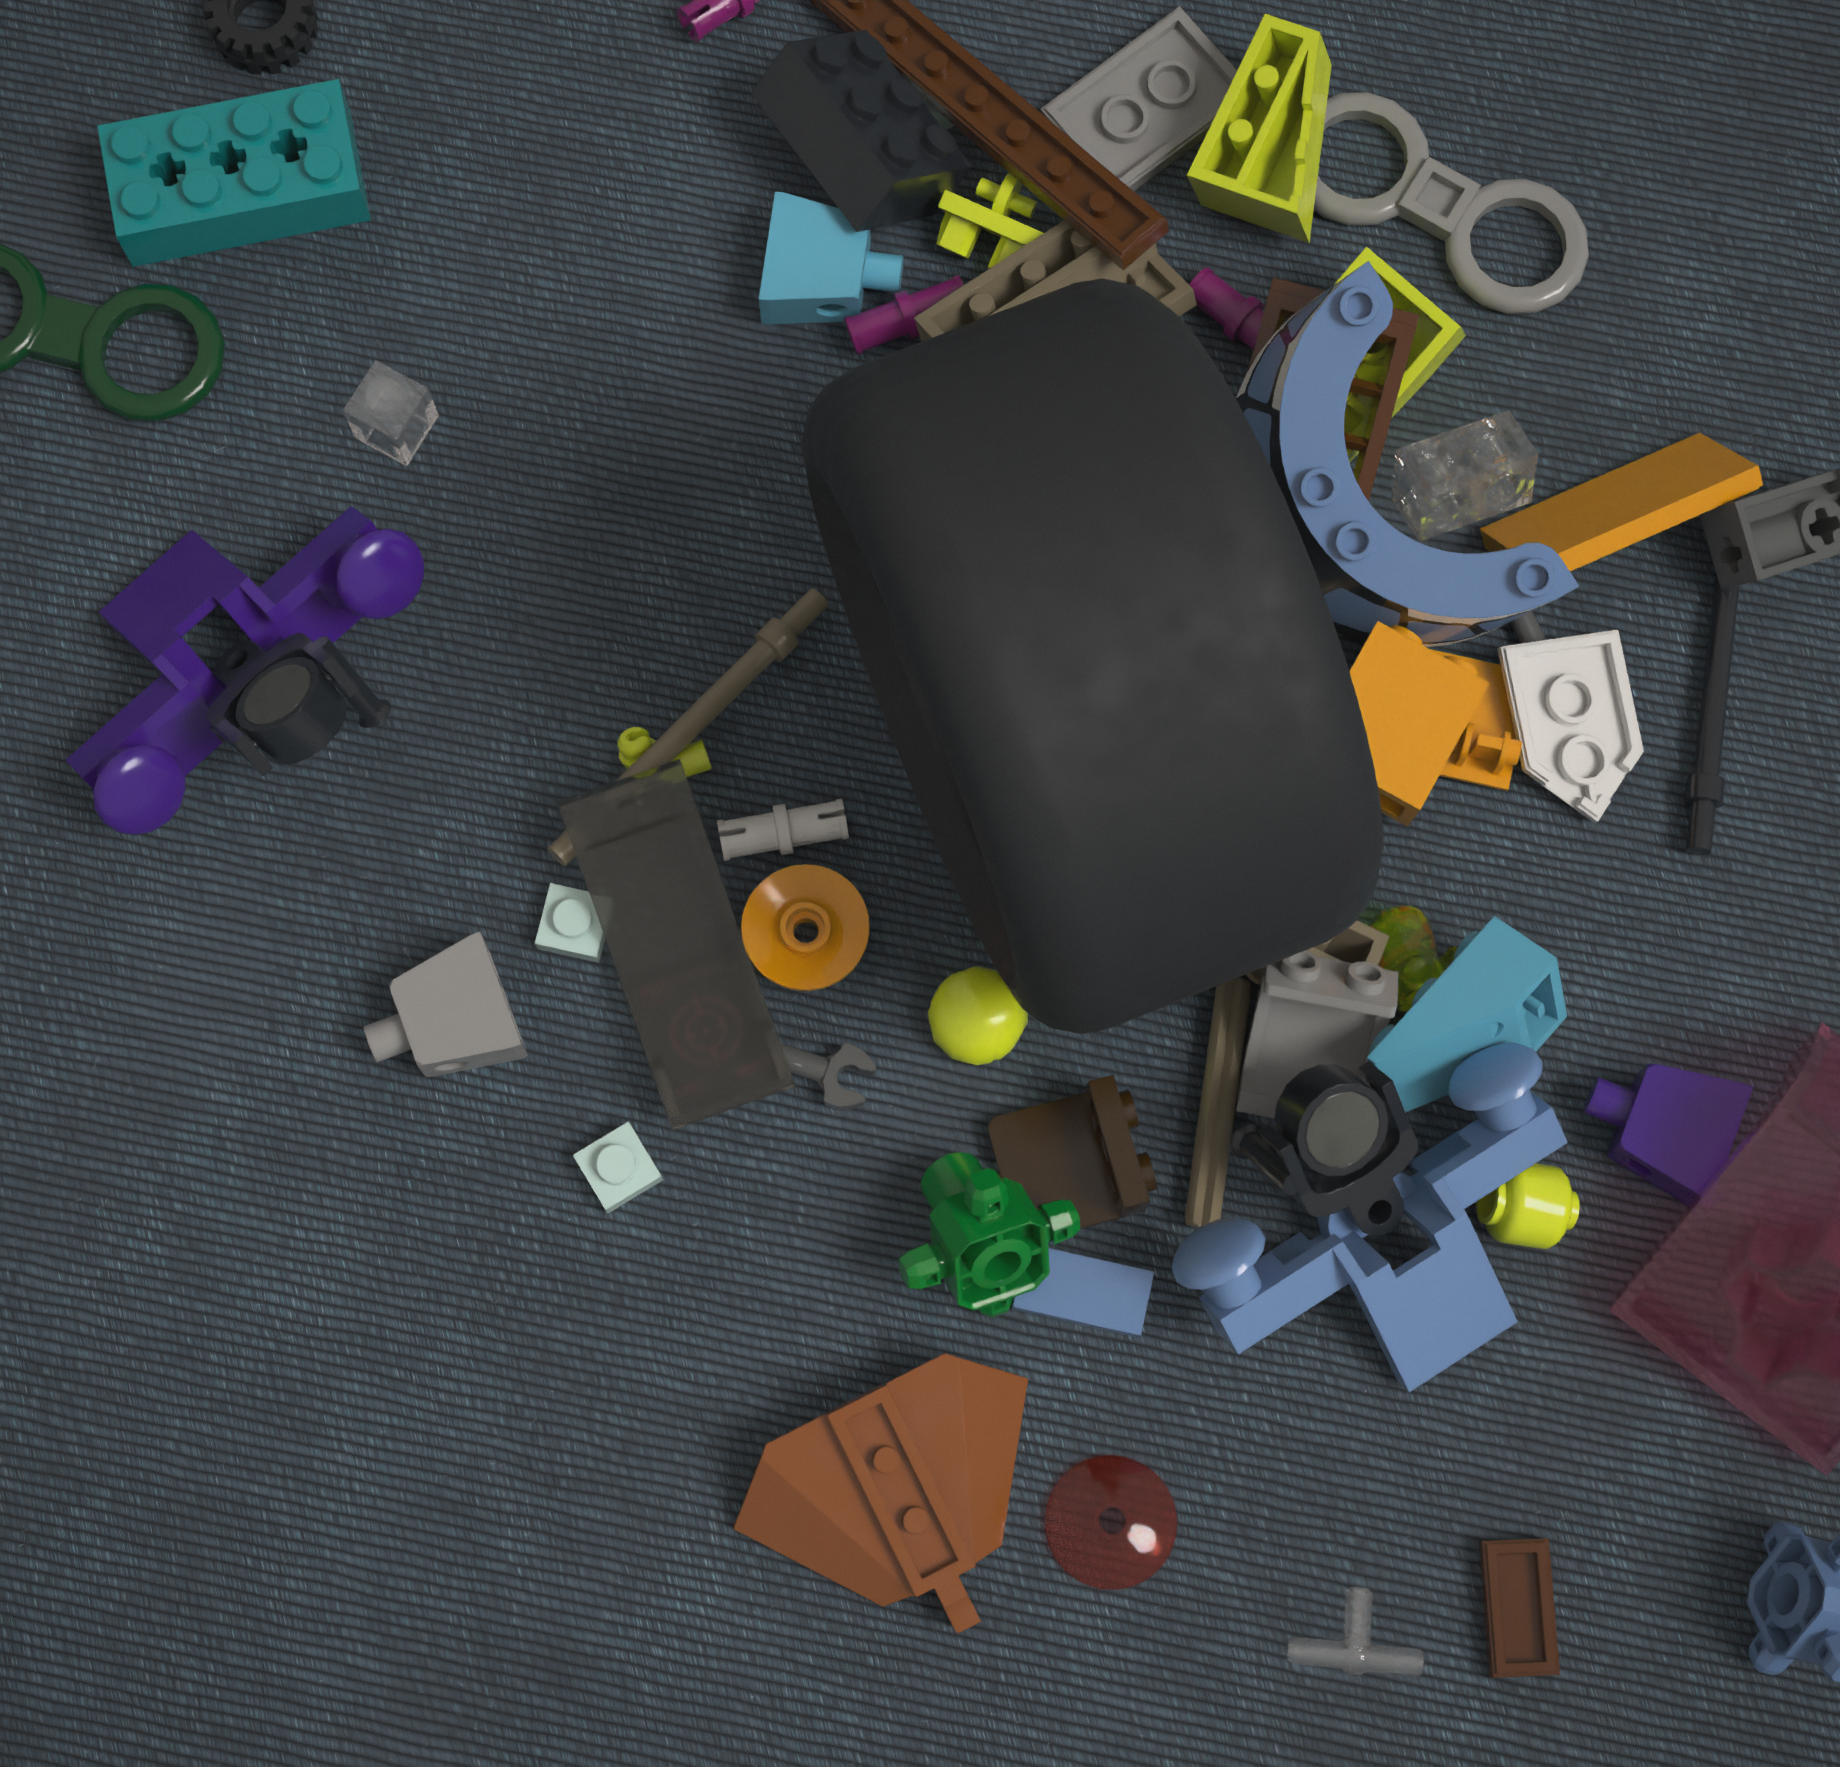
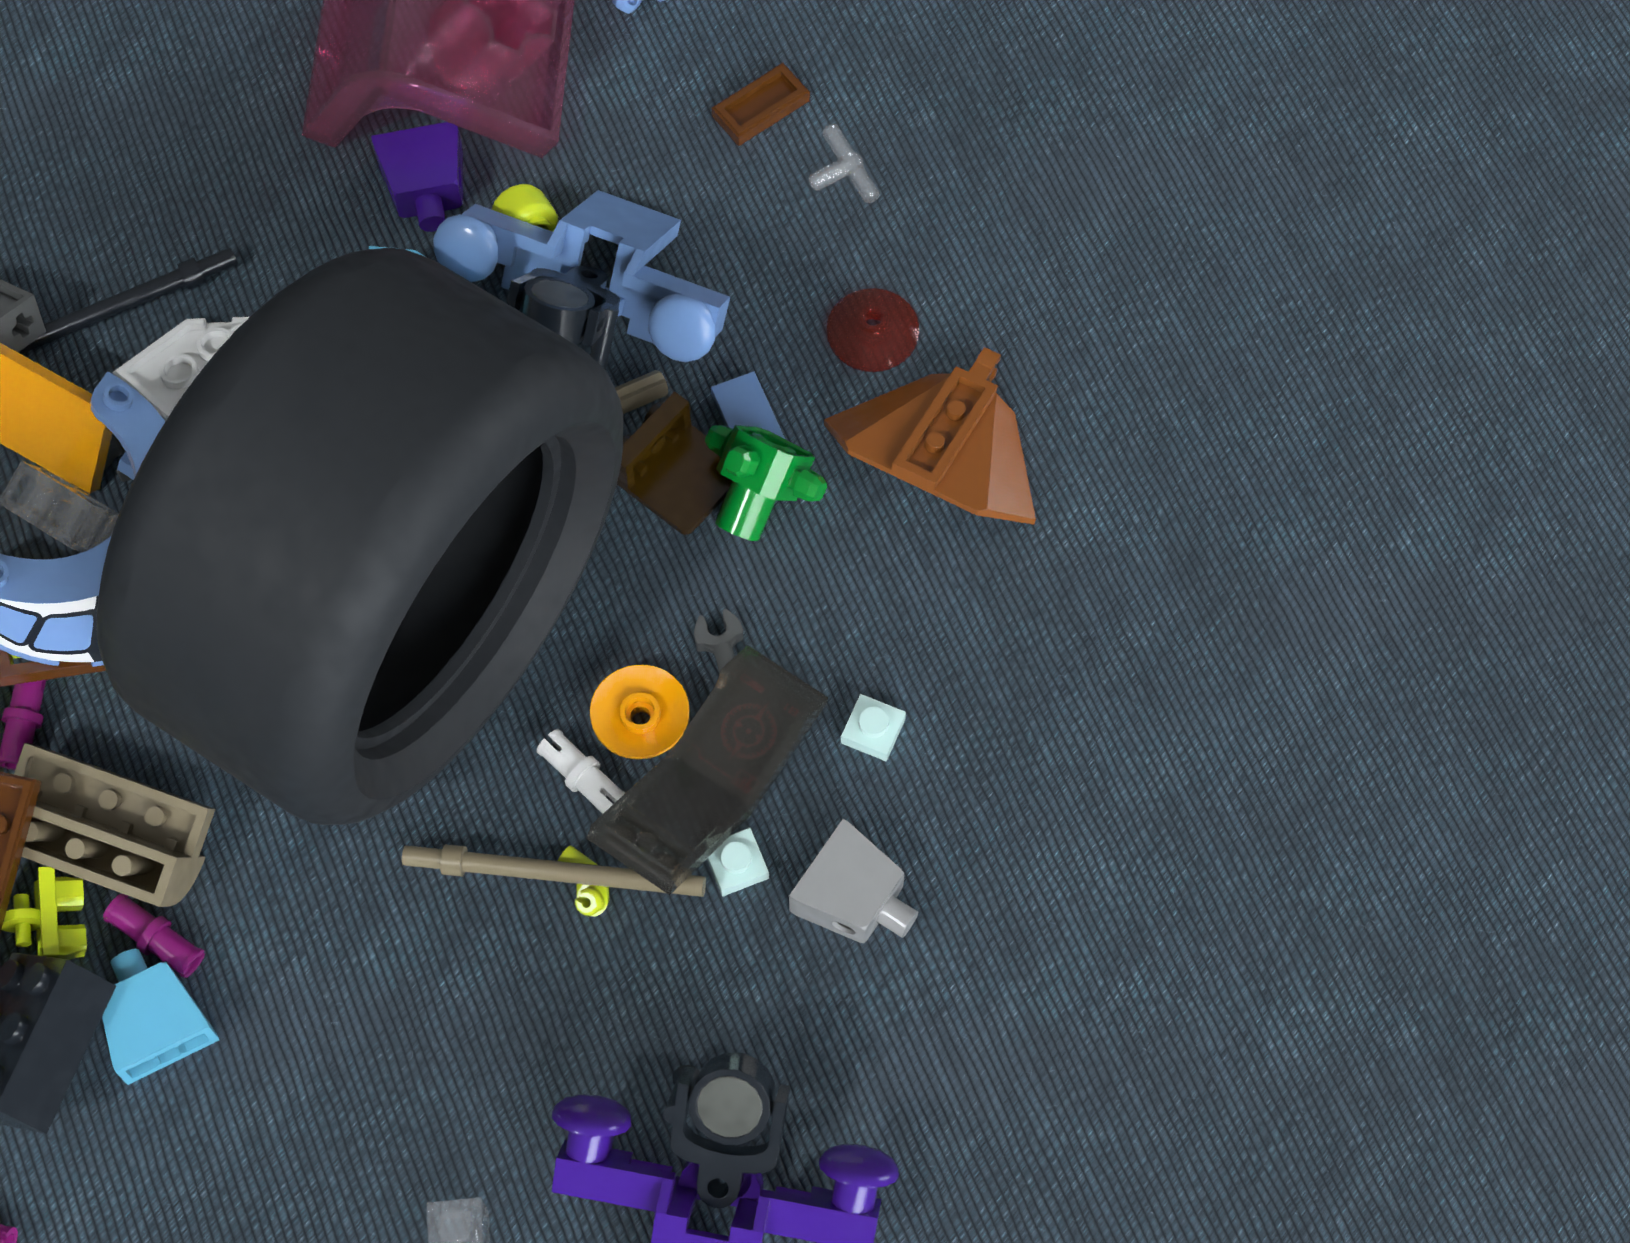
camera: 125 degrees left, 10 degrees down
(976, 1016) = (622, 581): neon yellow hair -> none

